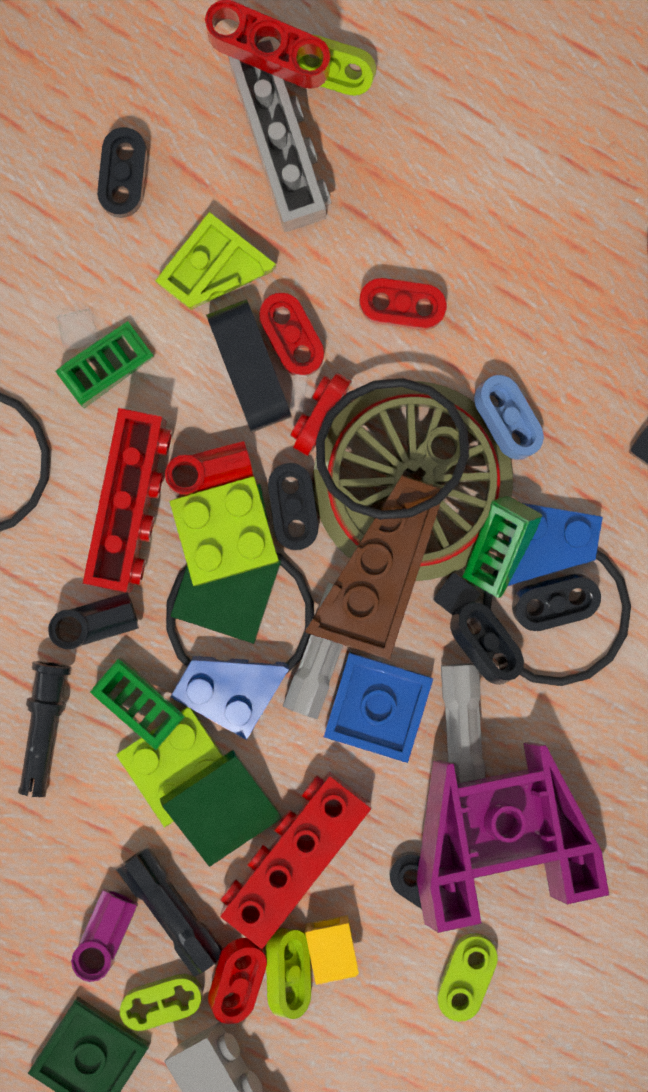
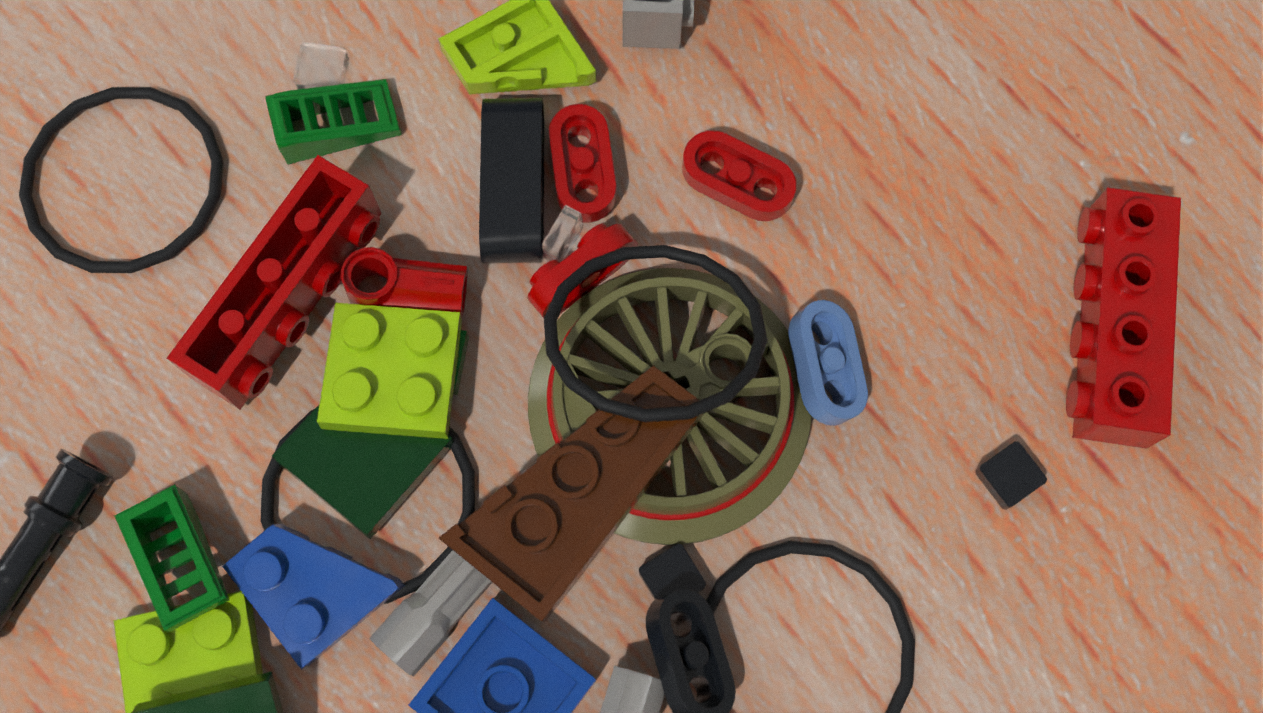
camera: 15 degrees right, 15 degrees down
(98, 621) = (169, 426): black piece -> none
(293, 506) = (497, 377): black plate -> none
(522, 534) = (789, 524): green slope -> none
(554, 602) = (807, 634): black plate -> none
(560, 542) = (826, 549): blue wing -> none

